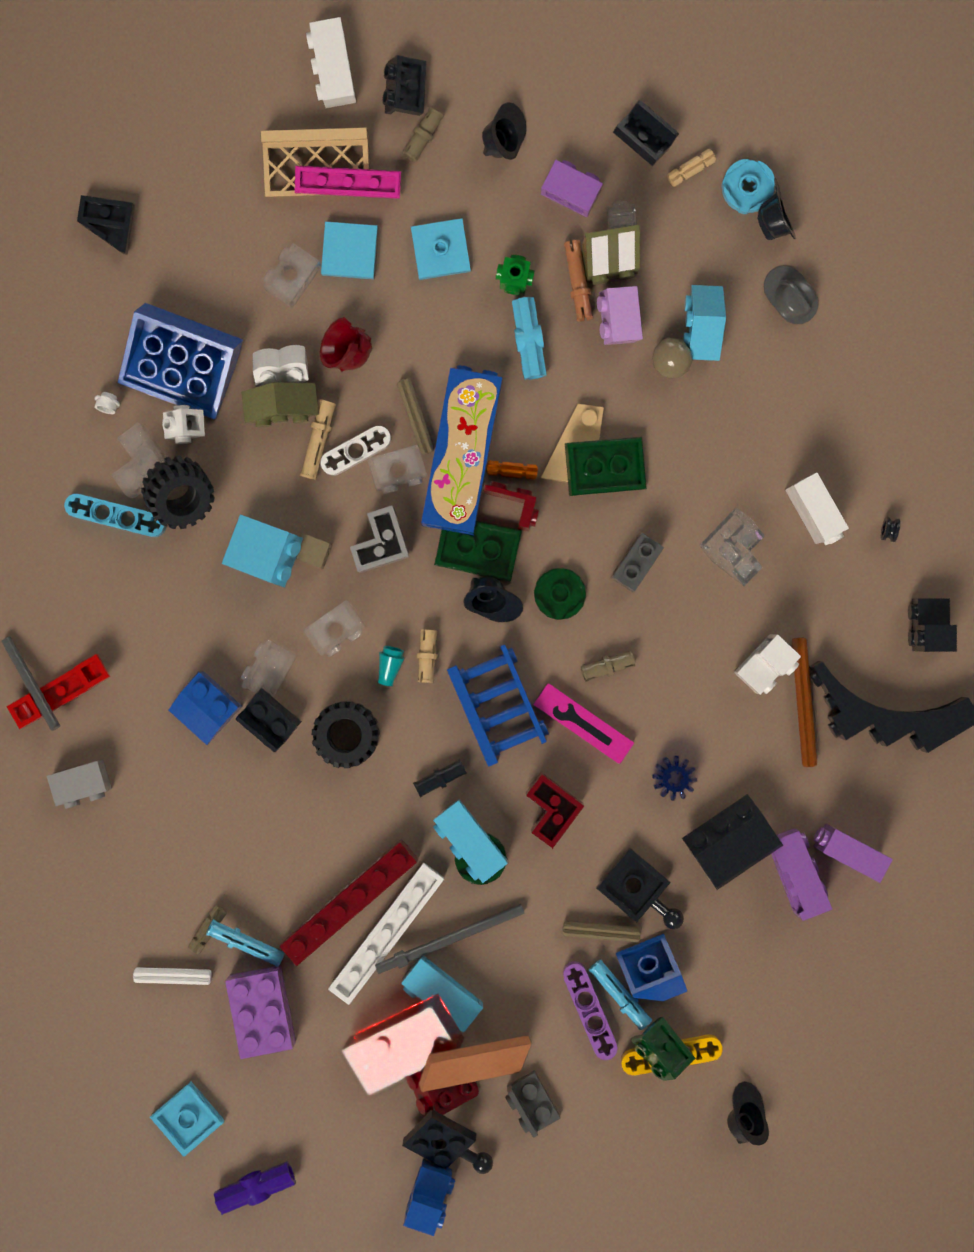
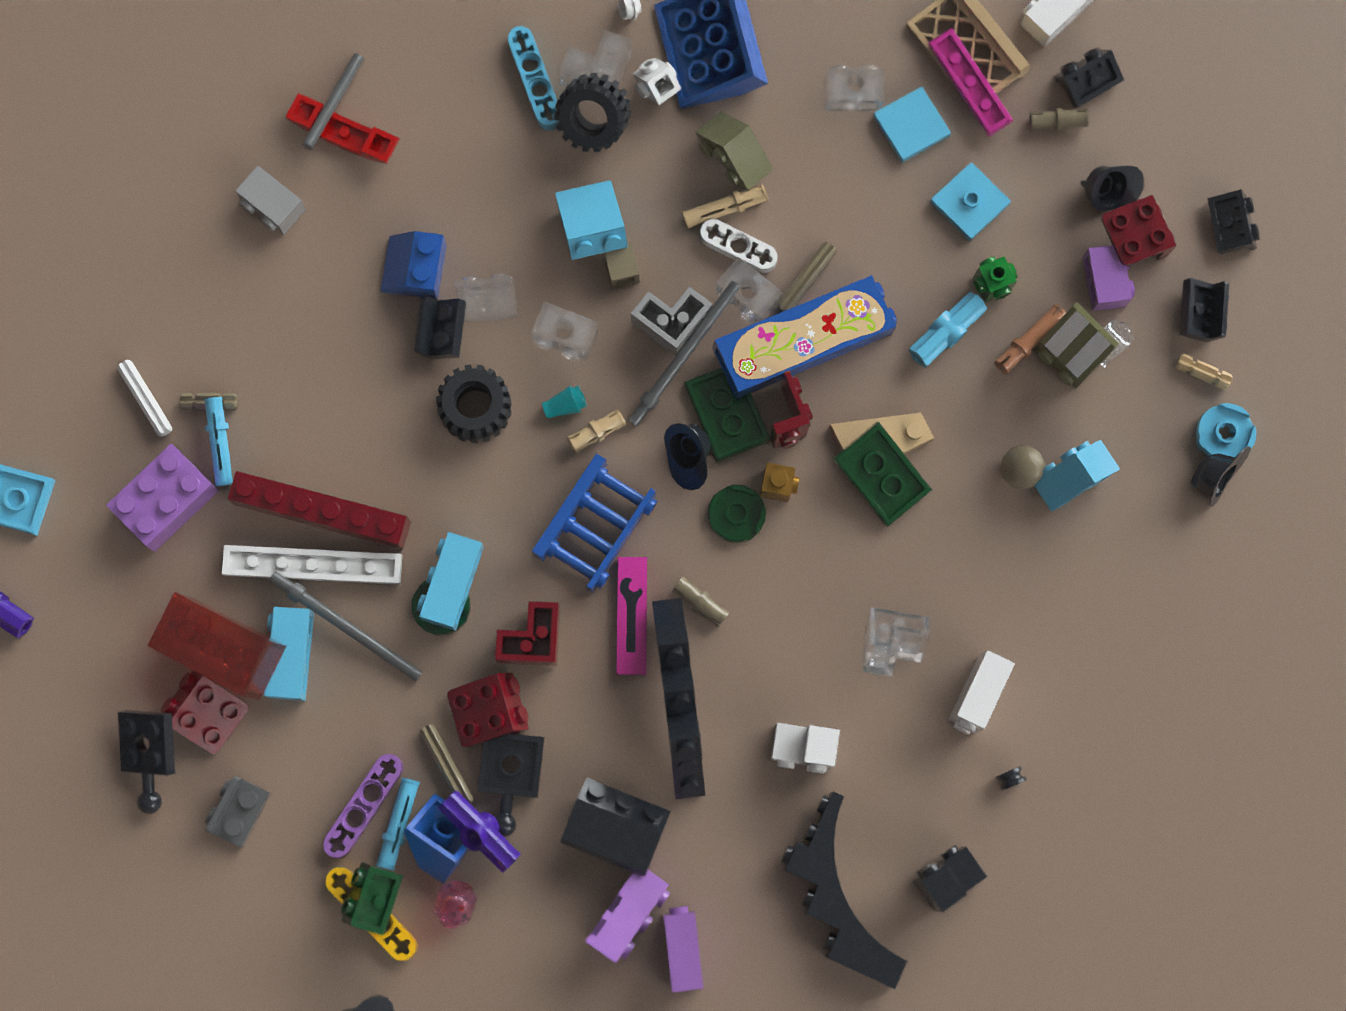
camera: 50 degrees right, 10 degrees down
(281, 365) = (773, 134): white brick -> none
(345, 346) = (825, 173): dark red helmet -> none
(426, 1206) = (75, 771): blue brick -> none
(429, 598) = (650, 399): none -> dark grey bar
(440, 778) = (491, 517): black pin -> none
(474, 1063) = (241, 723): nougat tile -> none
(511, 469) = (819, 394): orange axle -> none
(554, 139) = (1139, 231): none -> dark red bracket
(560, 547) = (779, 482): none -> pearl gold brick
(582, 875) = (487, 709): none -> dark red bracket
(594, 60) = (1233, 221): none -> black bracket
(620, 315) = (1026, 394): lavender brick -> none
(637, 562) = (814, 562): dark grey brick -> none
(667, 731) = (679, 698): none -> black arch
(668, 941) = (479, 831): none -> dark purple piece
(683, 780) = (641, 743): clear blue gear -> none
(707, 992) = (455, 904): none -> clear pink head
(791, 294) = (1157, 539): dark grey piece -> none
(804, 704) = (793, 809): dark orange axle -> none

